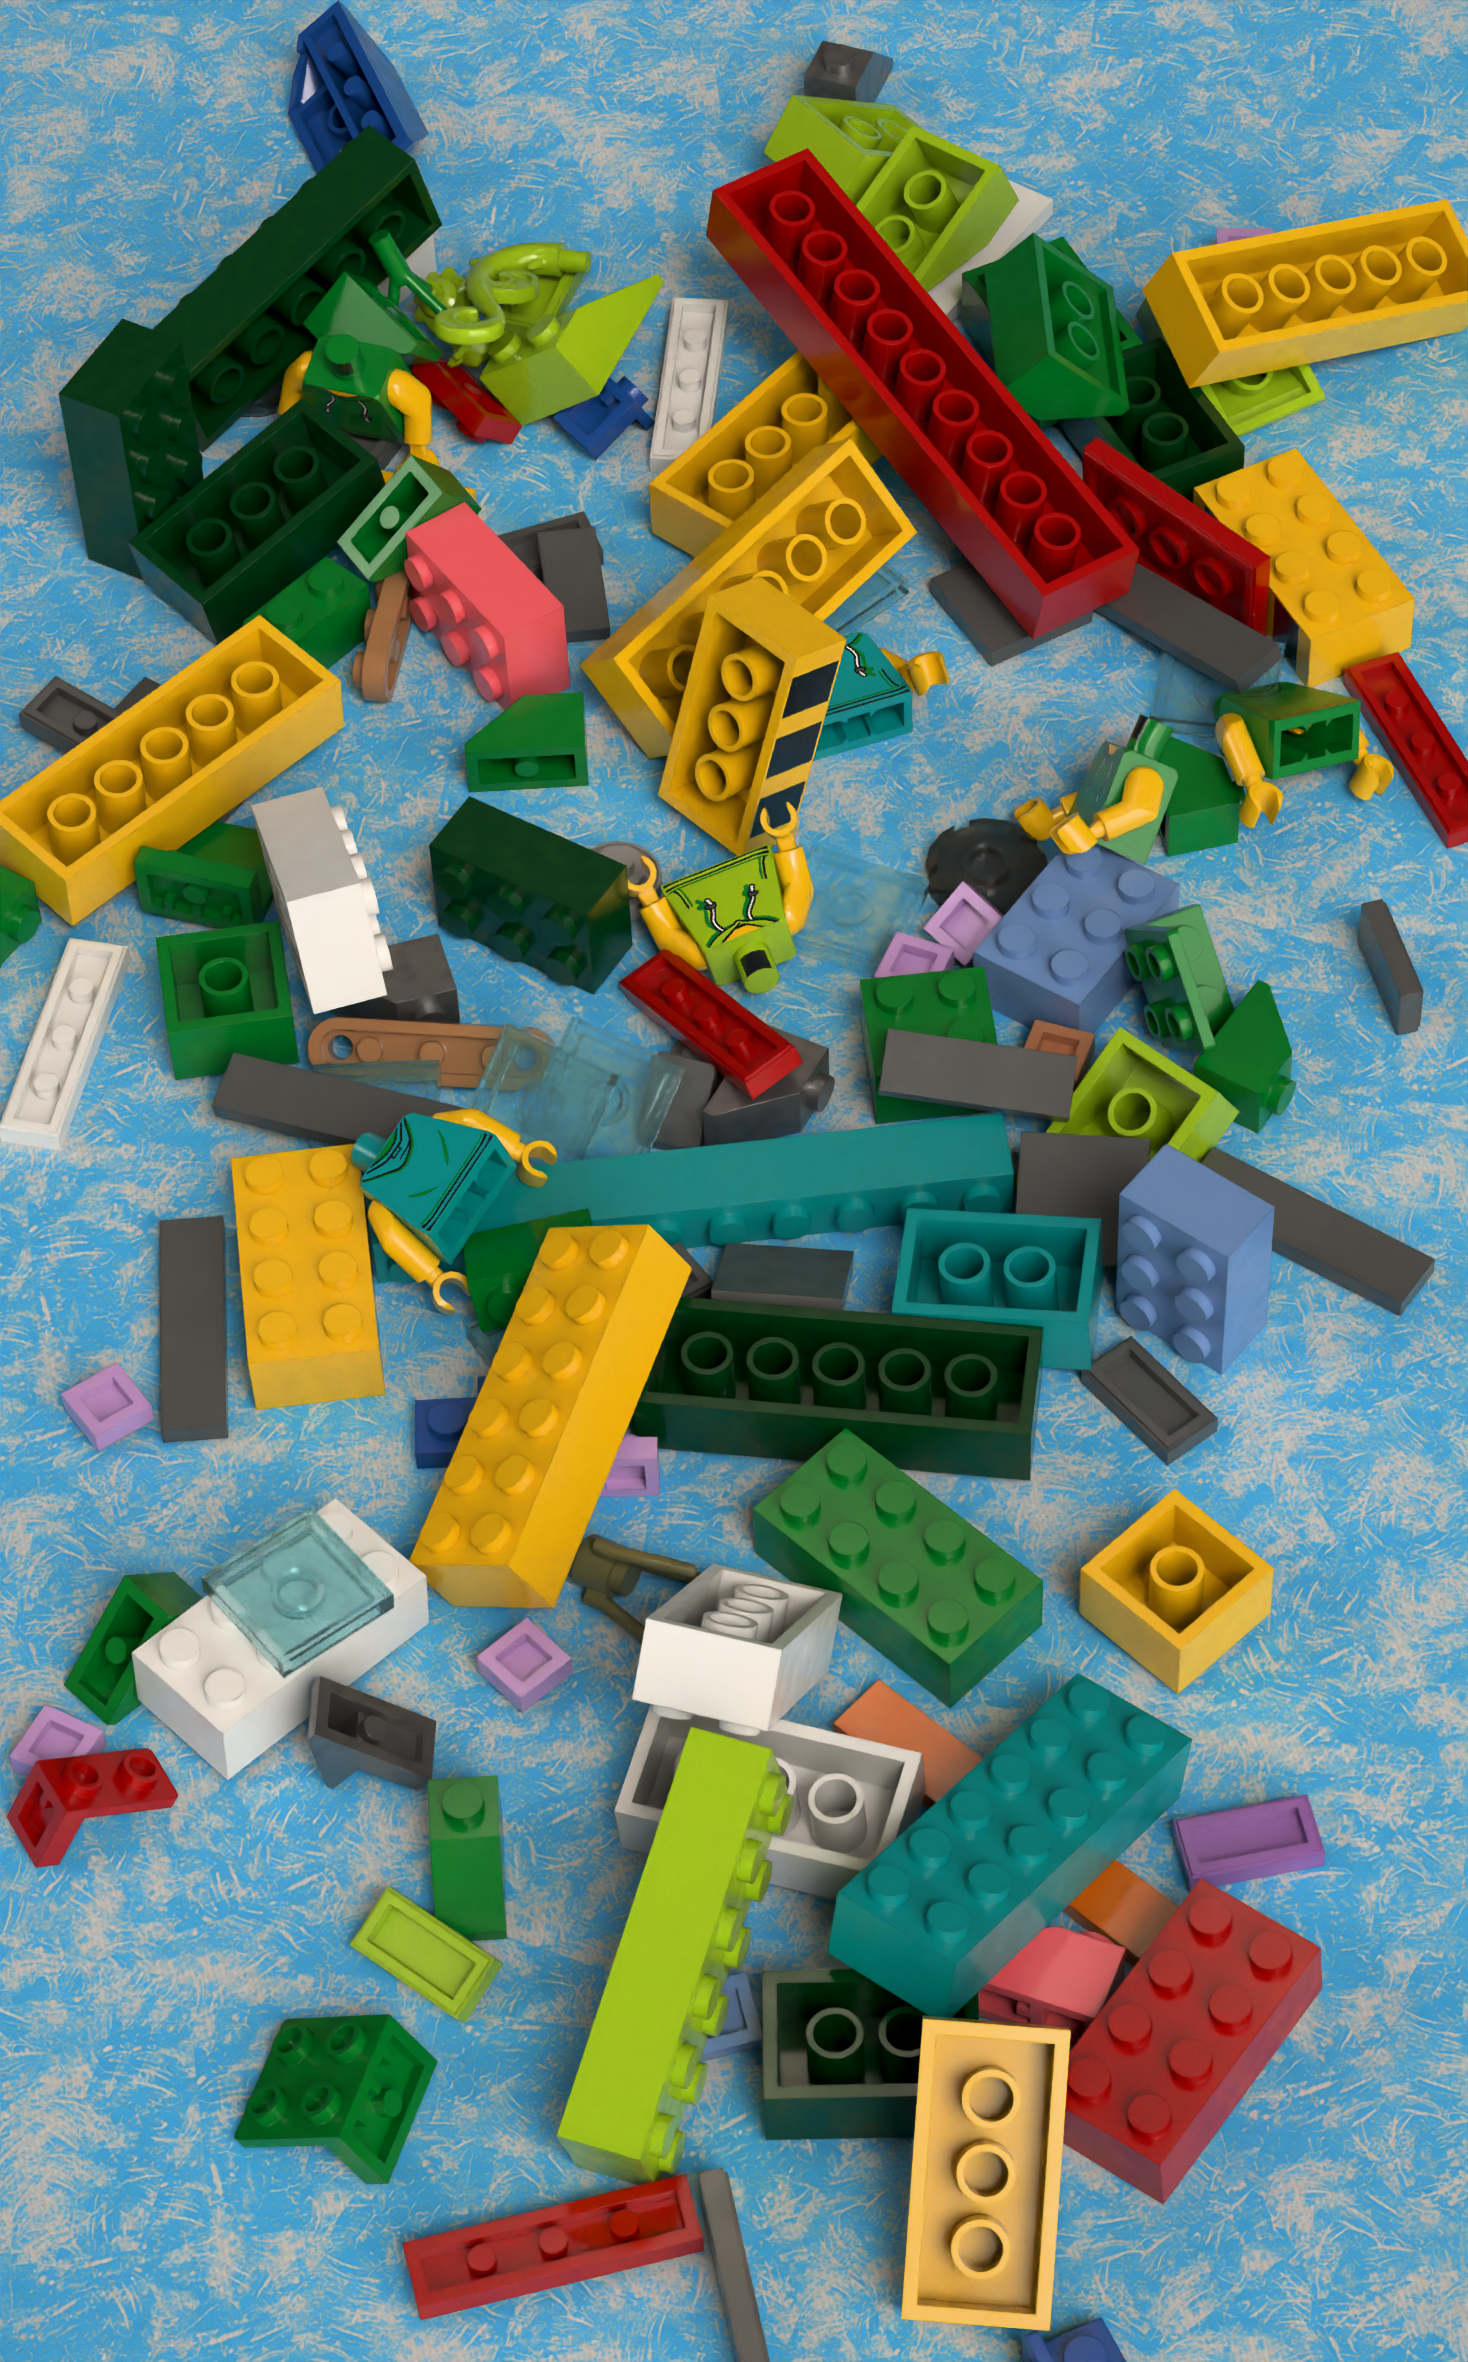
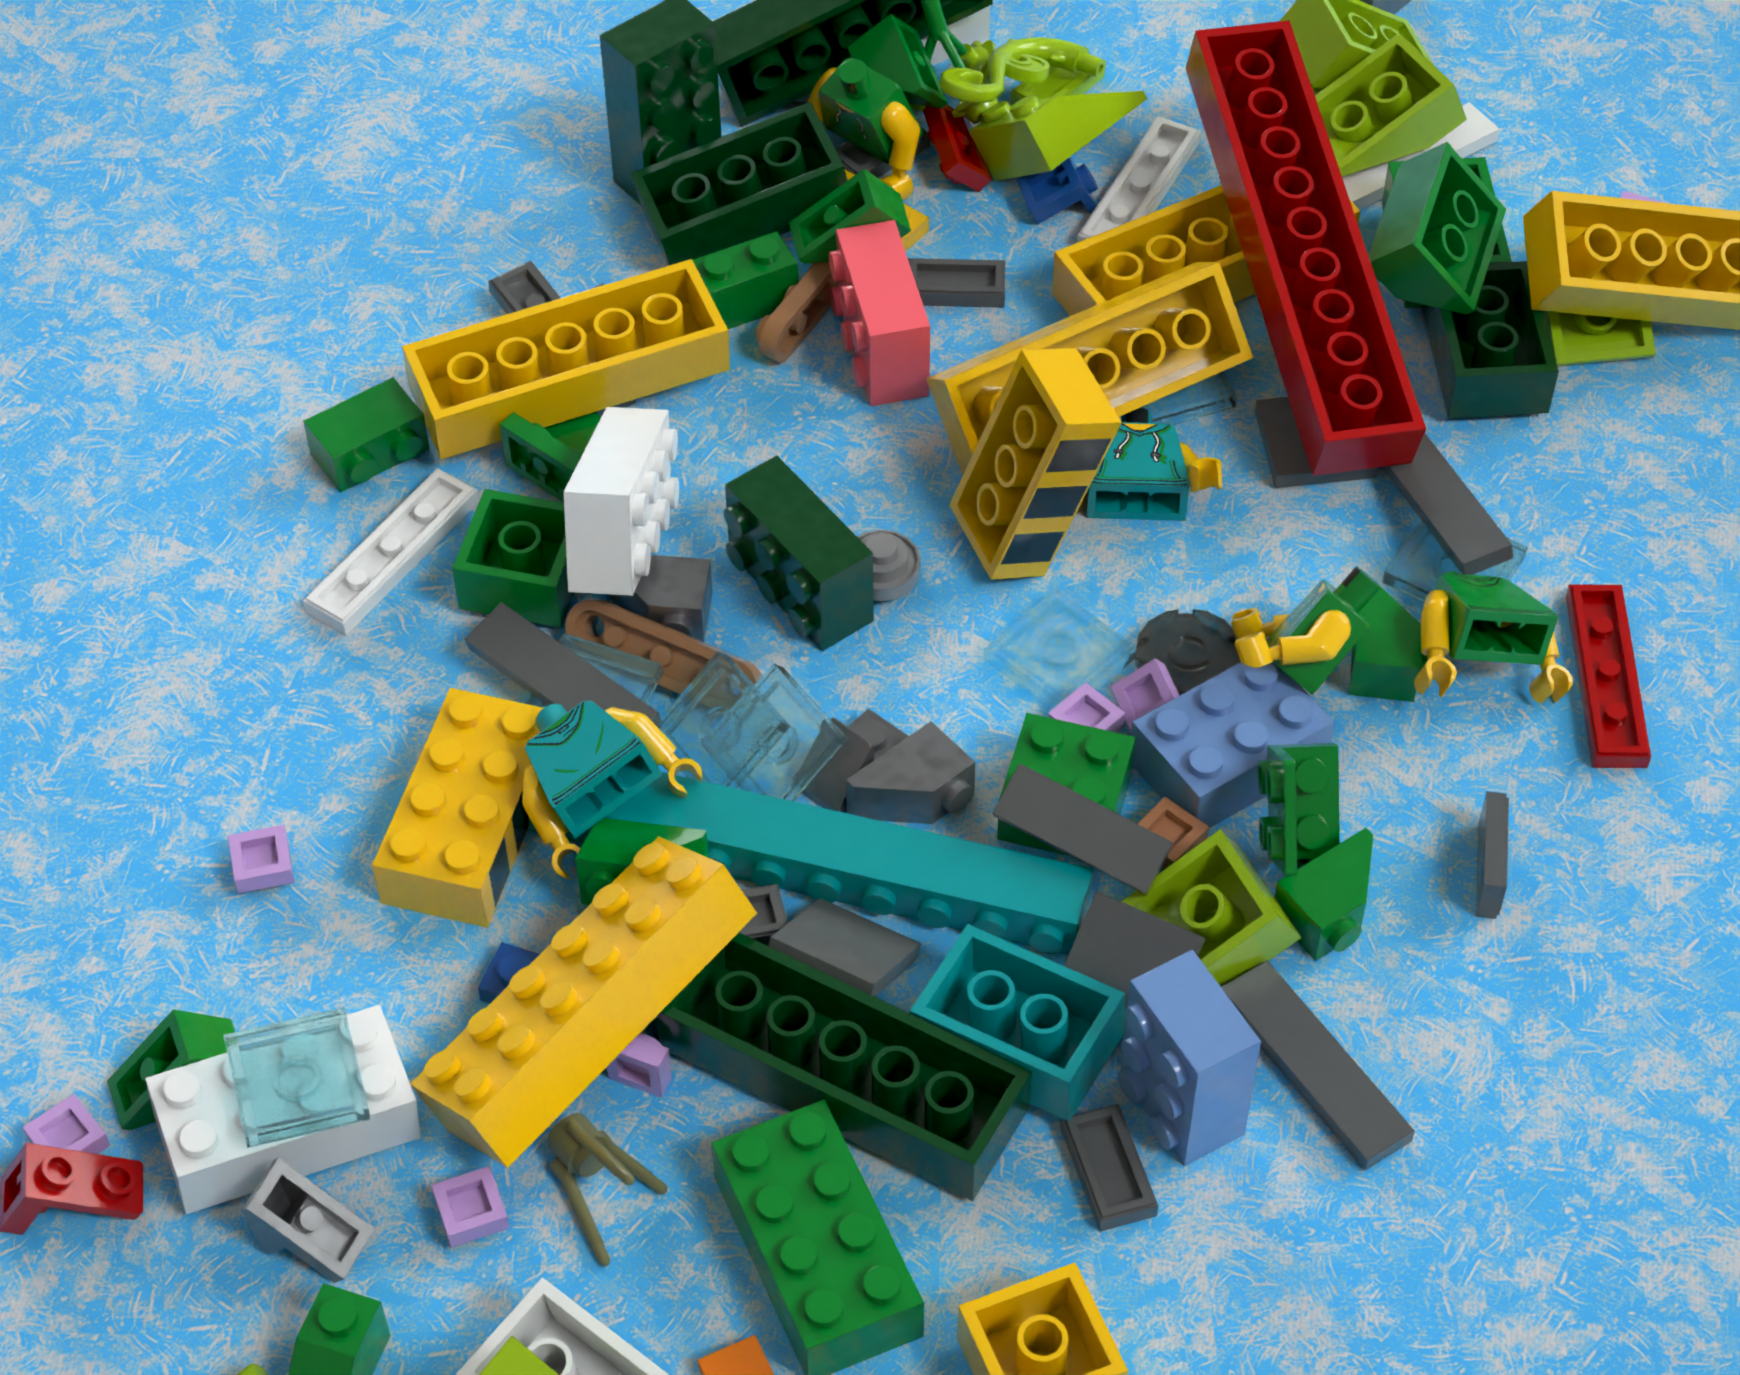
camera: 20 degrees right, 0 degrees up
(193, 1329) = (360, 821): dark grey tile -> none
(531, 746) = (869, 432): green slope -> none
(575, 577) = (966, 314): dark grey tile -> none
(711, 1023) = (891, 708): red tile -> none
(734, 914) = (960, 622): torso -> none
(736, 1649) = (622, 1267): white brick -> none
(1180, 538) = (1468, 431): red tile -> none
(1327, 582) = (1569, 488): yellow brick -> none

